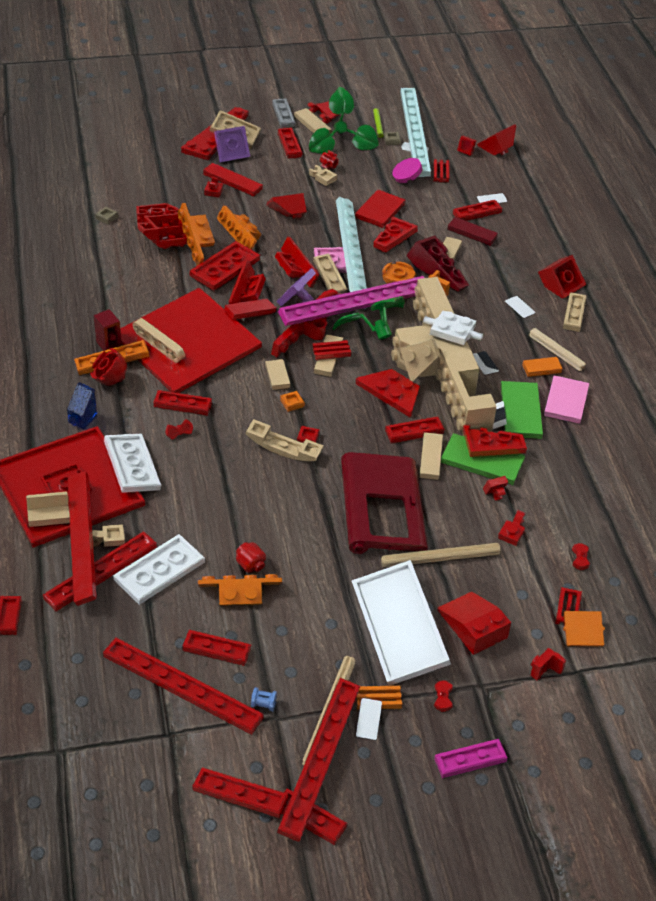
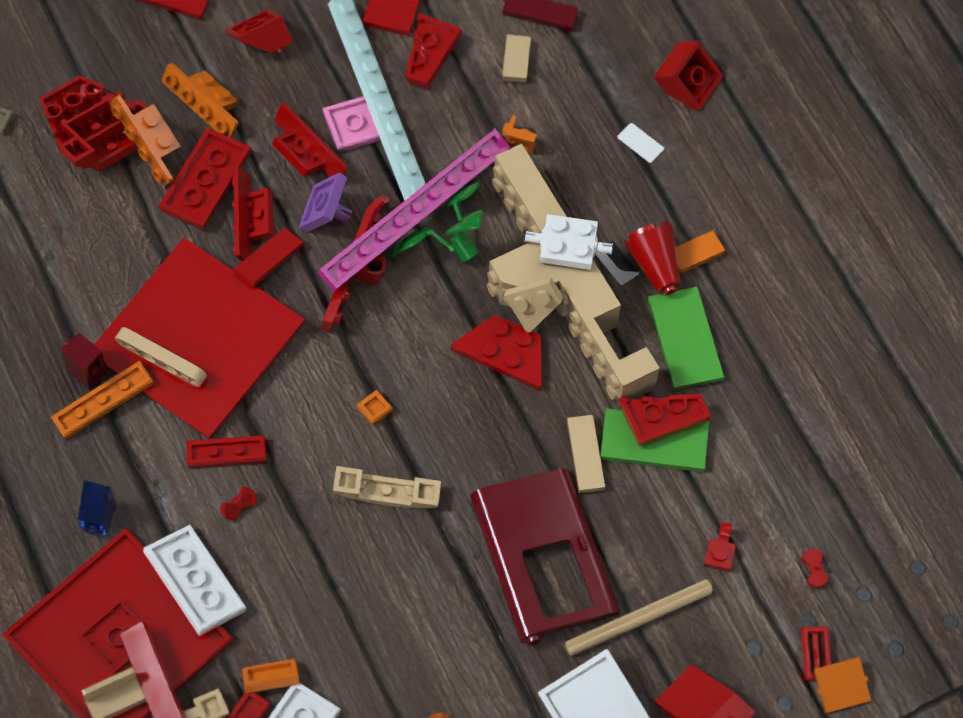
camera: 15 degrees left, 20 degrees up
(109, 368) = (108, 427): red cylinder -> none
(162, 527) = (270, 675): none -> orange tile
(213, 188) = (138, 22): red tile -> none
(250, 557) = (400, 694): red head -> none
(277, 374) = (341, 365): tan tile -> none
(308, 433) = (413, 464): red tile -> none
(326, 366) = (401, 311): tan tile -> none
(330, 273) = (361, 157): tan tile -> none
(330, 350) = (419, 289): red tile -> none
(397, 272) = (456, 126): orange tile -> none
(413, 429) = (552, 413): red tile -> none
(432, 255) = (502, 91): dark red wedge -> none
(496, 487) = (685, 488): red tile -> none
(500, 417) = (659, 354): sticker -> none
(512, 355) = (656, 255): none -> red cone
(557, 349) = (710, 214): tan axle -> none
(566, 399) = (742, 303): bright pink tile -> none
(574, 312) = (718, 135): tan tile -> none

